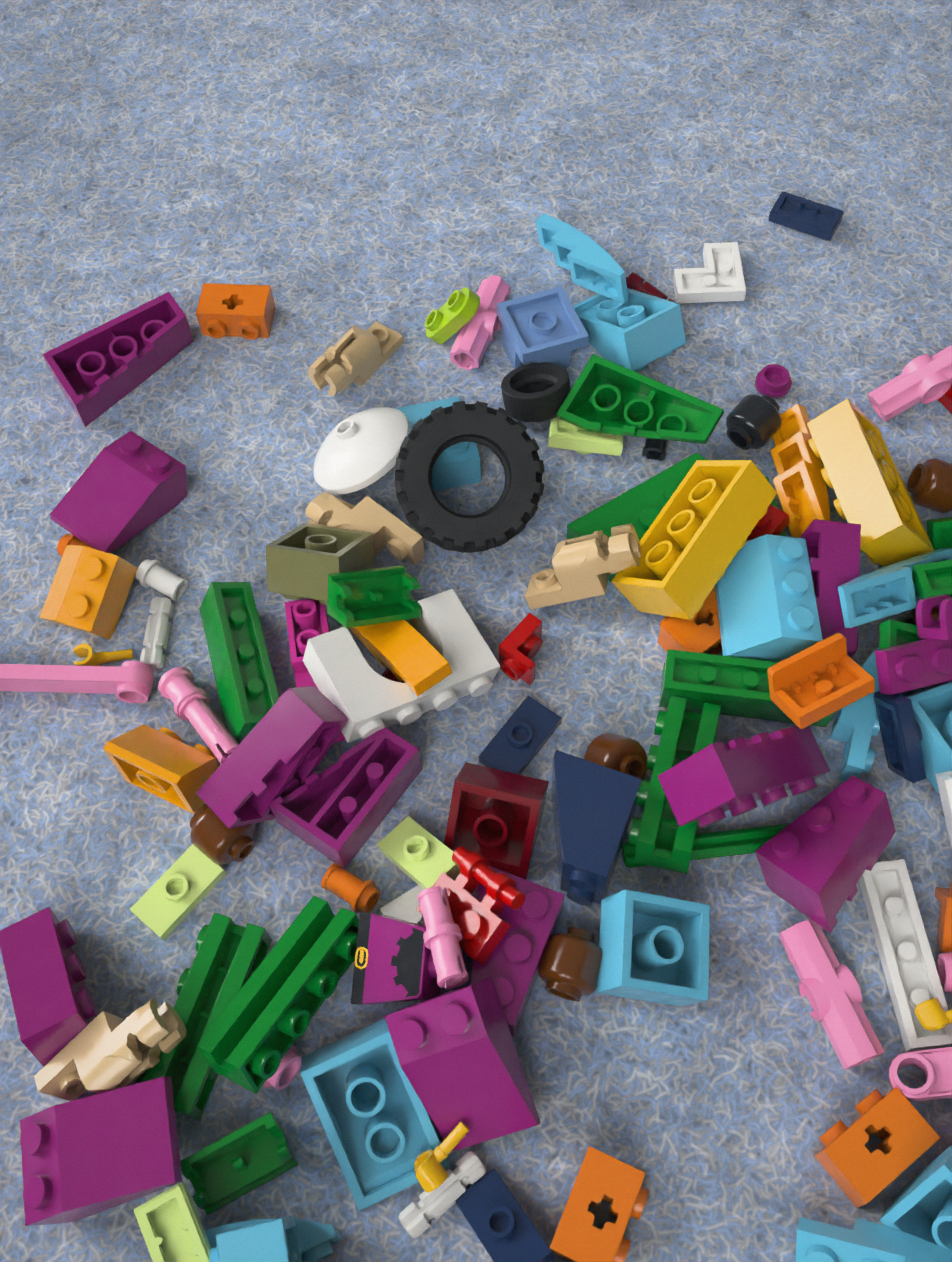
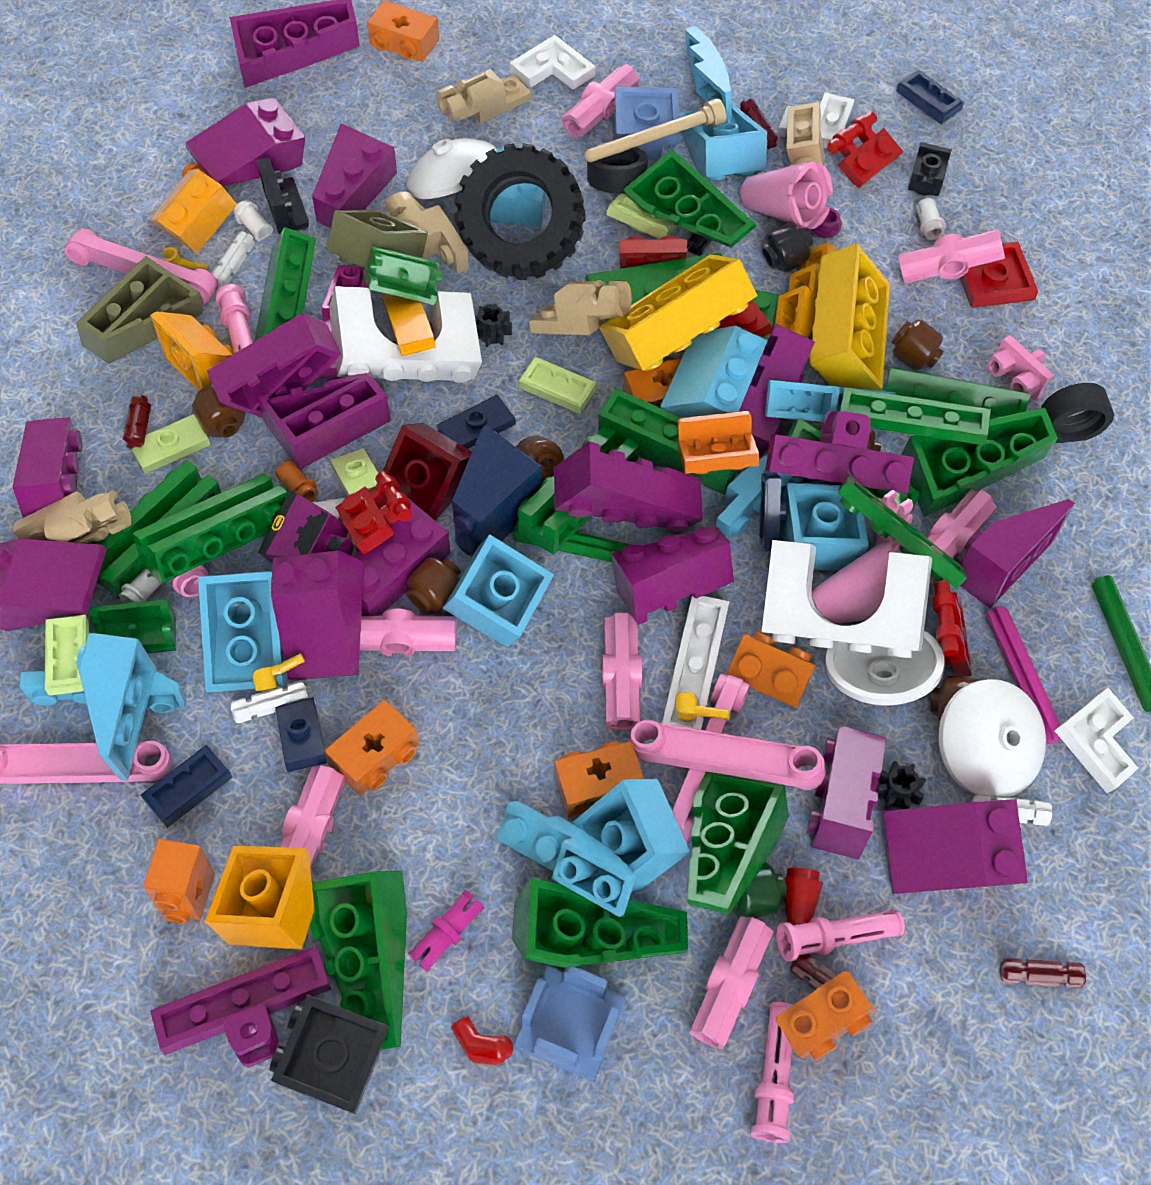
camera: 15 degrees right, 0 degrees up
(72, 738) = (122, 316): none -> olive wedge
(130, 880) = (136, 422): none -> dark red axle
(185, 544) = (282, 198): none -> black bracket
(222, 1104) = (140, 588): none -> white pin
(254, 493) = (352, 174): none -> magenta wedge
(406, 292) = (553, 58): none -> white plate
(442, 937) = (339, 519): bright pink pin -> none
(452, 316) = (580, 84): lime plate -> none
(487, 613) = (493, 324): none -> black gear
(519, 648) = (508, 354): red bracket -> none
(570, 1036) = (405, 632): none -> bright pink piece
(588, 661) = (557, 385): none -> yellowish green plate
(610, 304) = (711, 115): none -> tan piece
(610, 479) = (639, 251): none -> red plate
(719, 309) = (804, 134): none -> tan plate
(729, 364) = (790, 194): none -> bright pink cone
(782, 298) = (871, 157): none -> red plate
(848, 292) = (929, 169): none -> black brick
(879, 349) = (931, 223): none -> white pin

